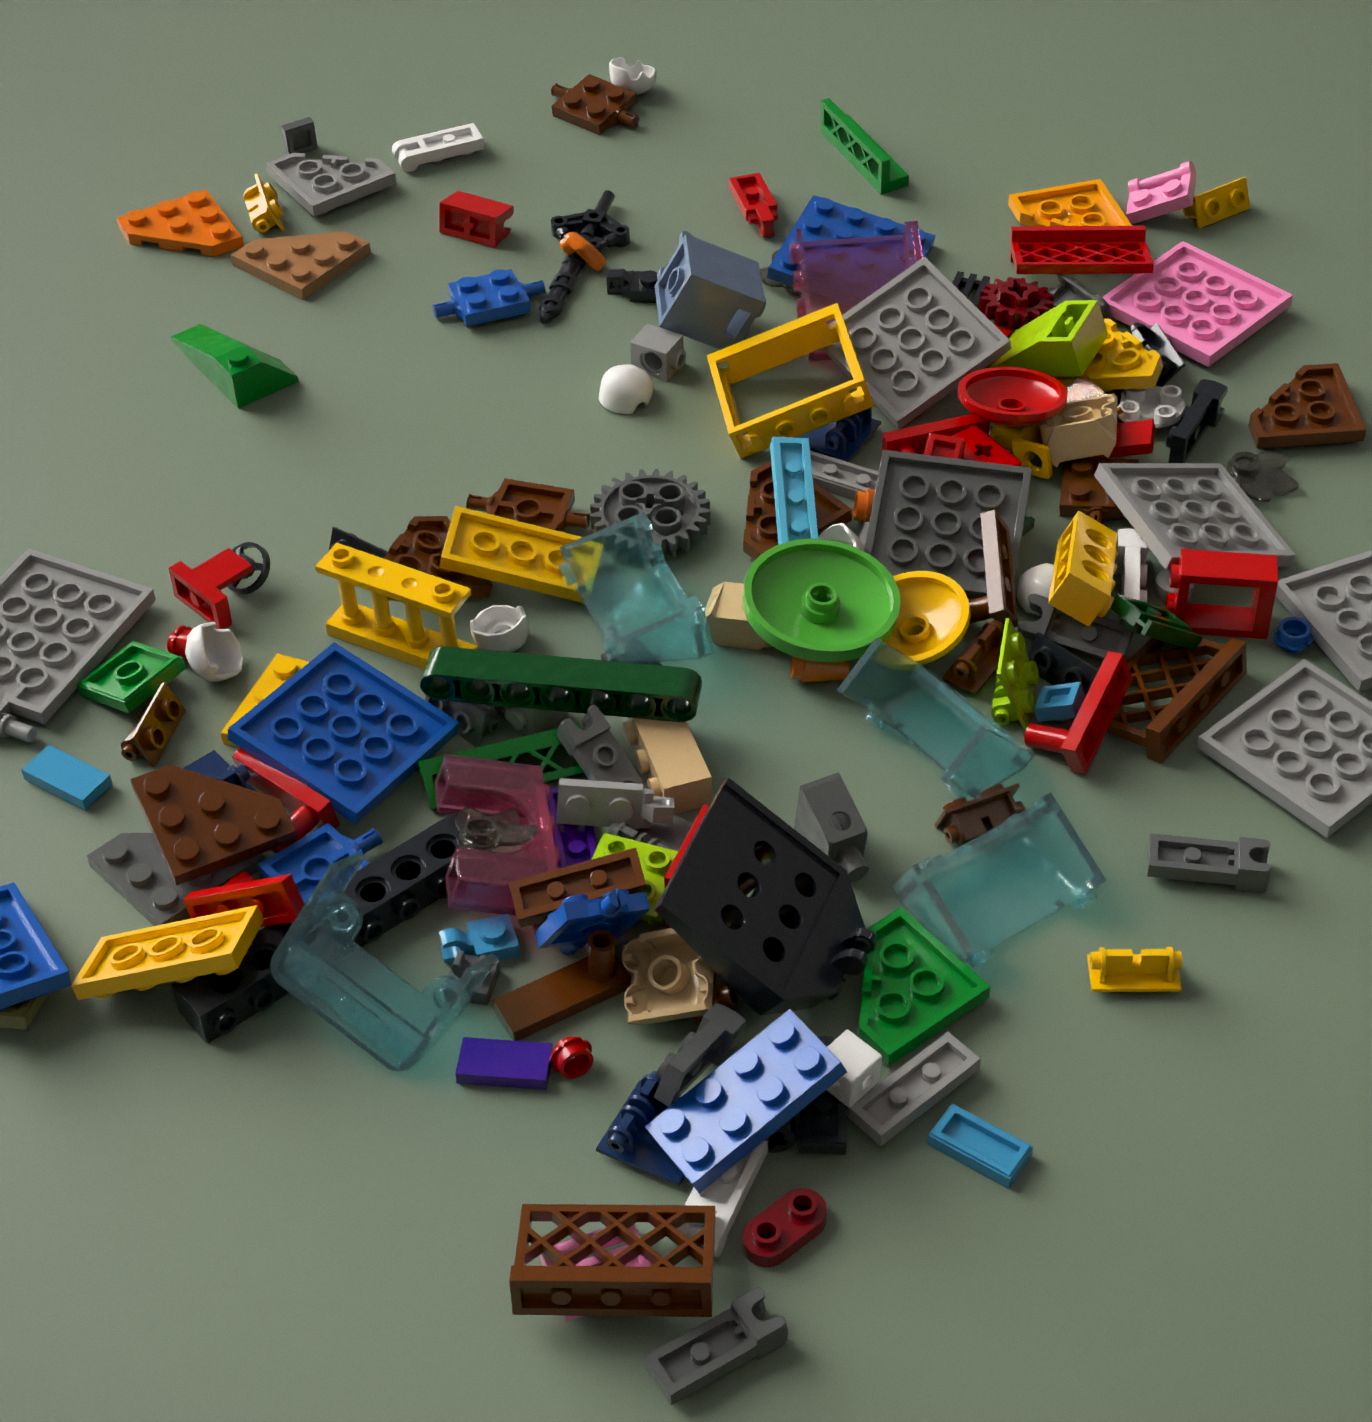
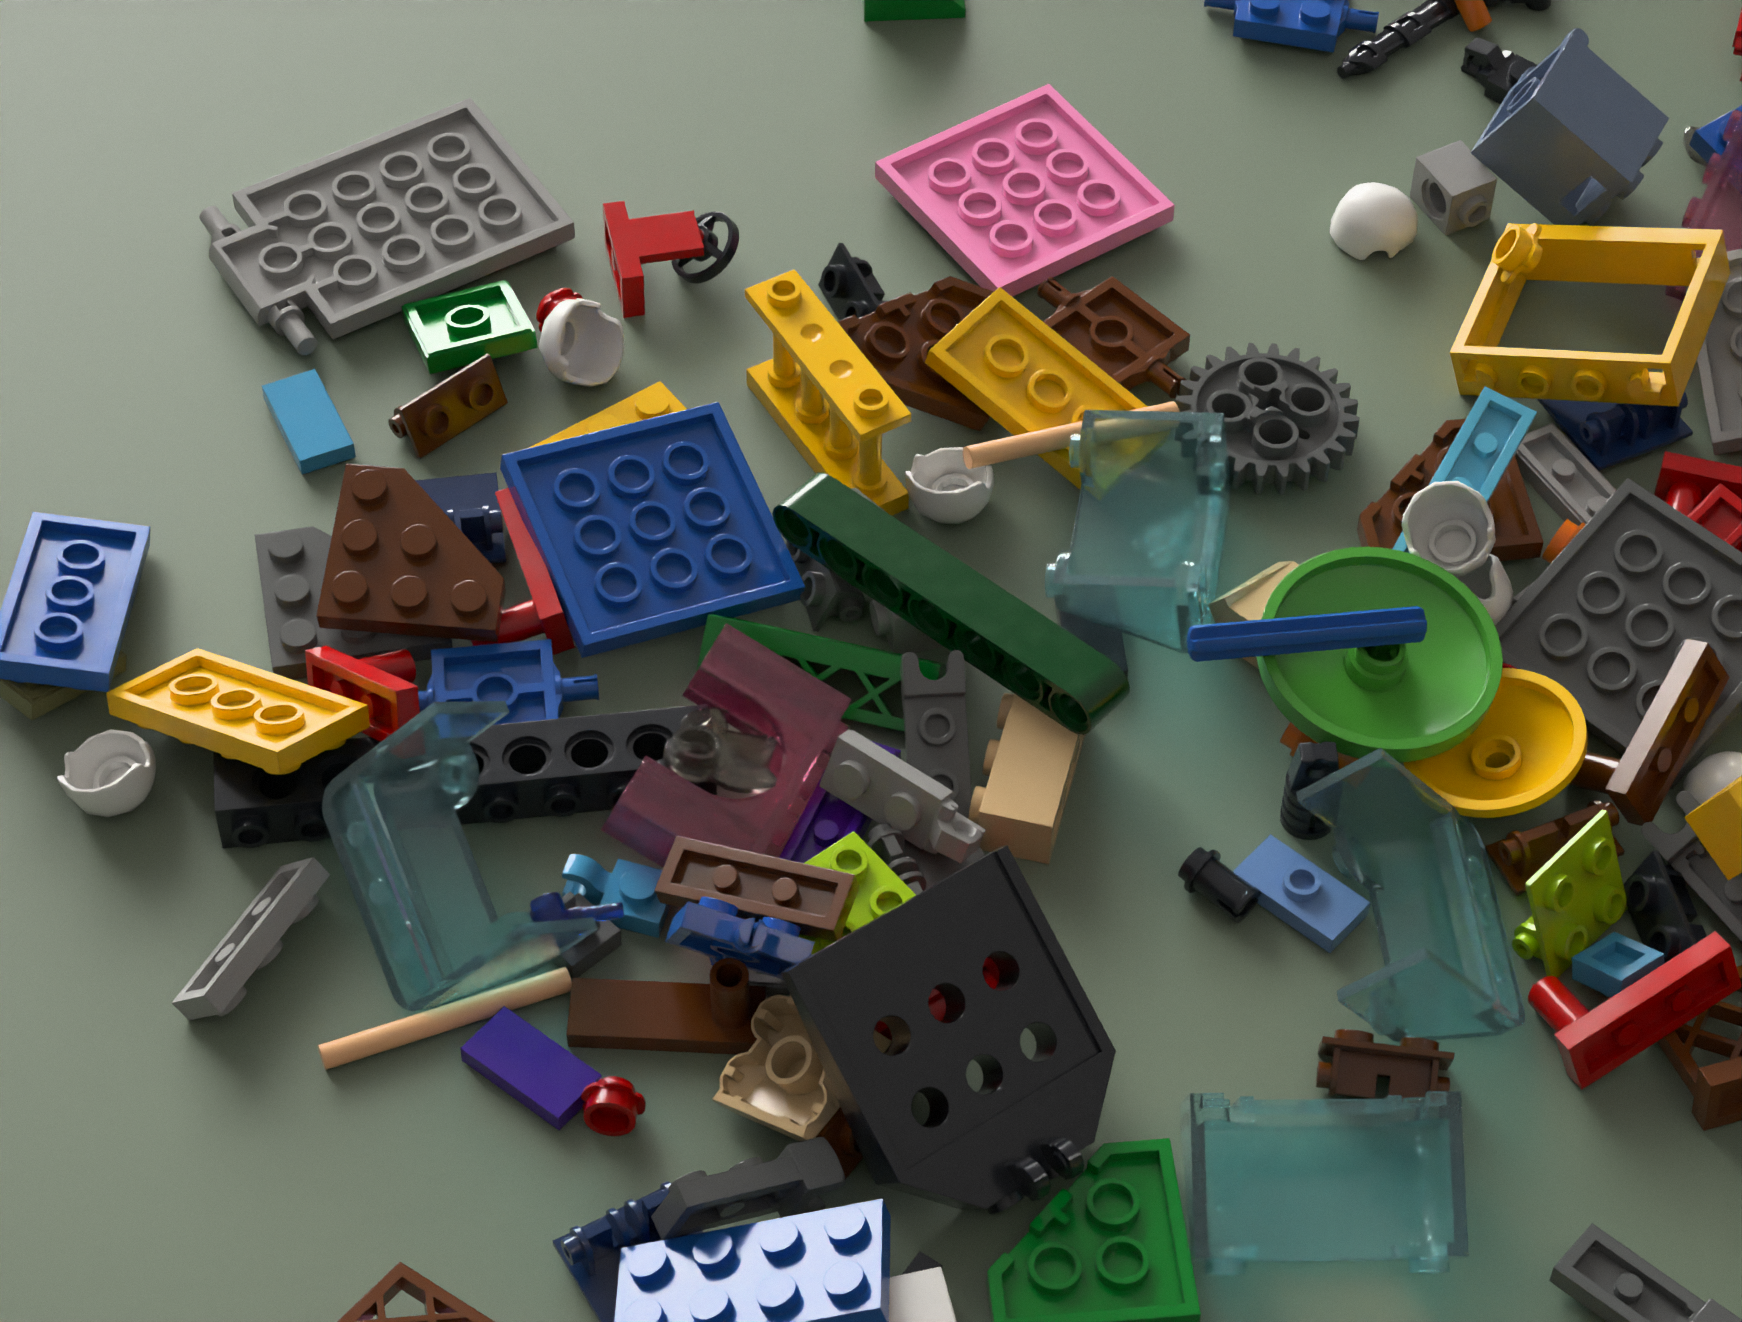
camera: 30 degrees right, 5 degrees up
(105, 1033) = (109, 773): none -> white hair
(275, 1081) = (252, 940): none -> light grey plate
(413, 457) = (1024, 192): none -> bright pink plate
(428, 1065) = (444, 1018): none -> light nougat bar
(459, 963) = (552, 908): none -> clear blue hand
(536, 582) = (1033, 442): none -> light nougat bar
(729, 364) = (1517, 251): none -> yellow plate
(780, 604) = (1306, 633): none -> blue axle
(811, 514) = (1450, 527): none -> white hair
(816, 764) = (1218, 884): none -> black pin
(831, 704) = (1308, 766): none -> black hinge
(833, 823) = (1156, 982): dark grey torso -> none
(863, 750) = (1303, 894): none -> medium blue plate

